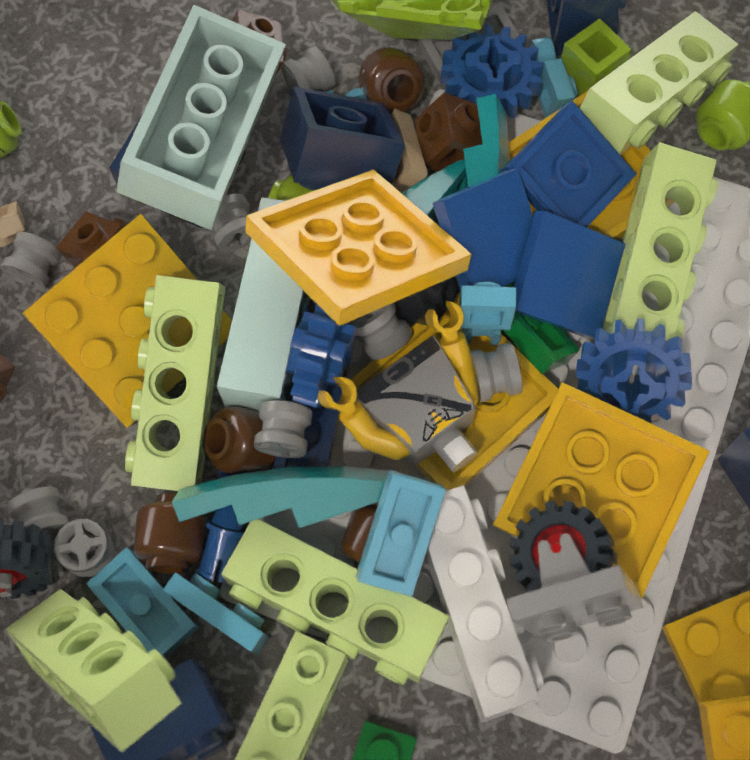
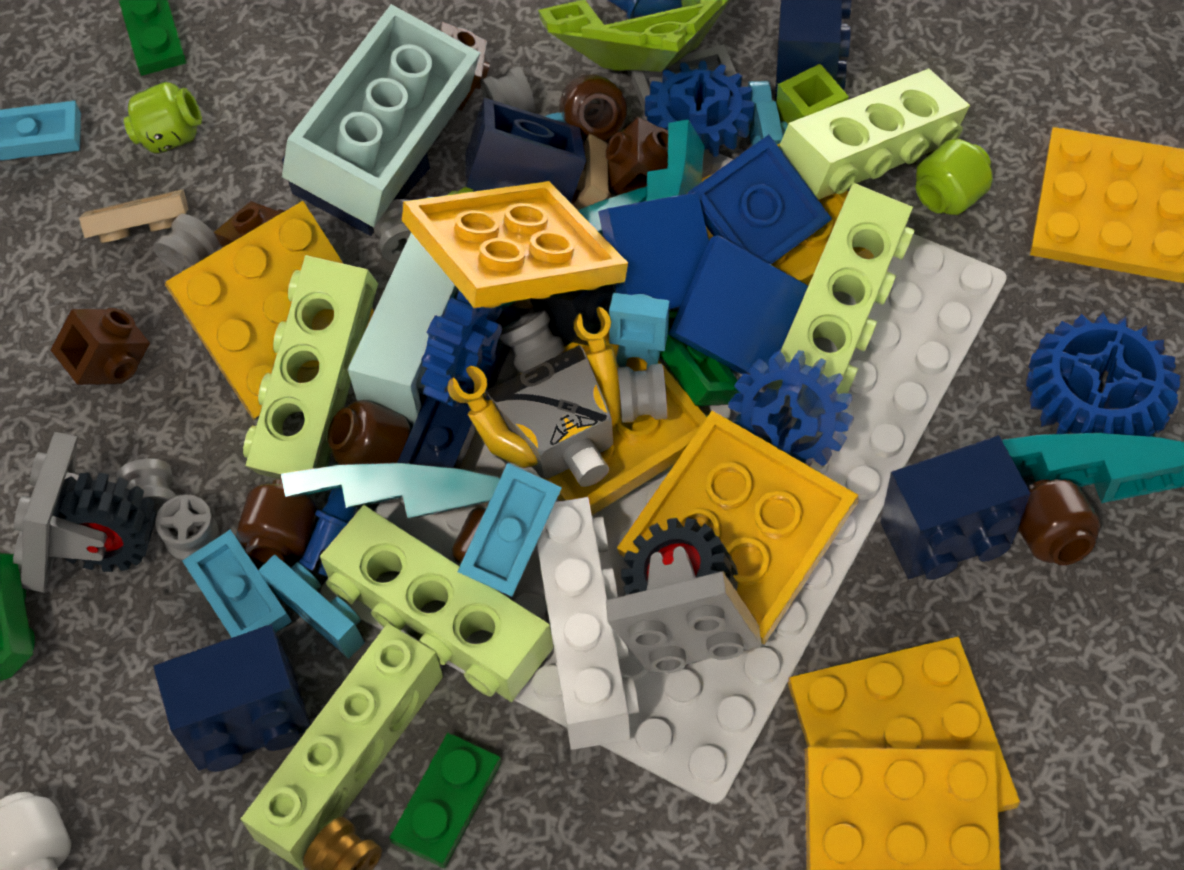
camera: 10 degrees right, 10 degrees down
(96, 667) = (172, 620): yellowish green brick -> none
(283, 429) = (410, 423): light grey wheel -> none

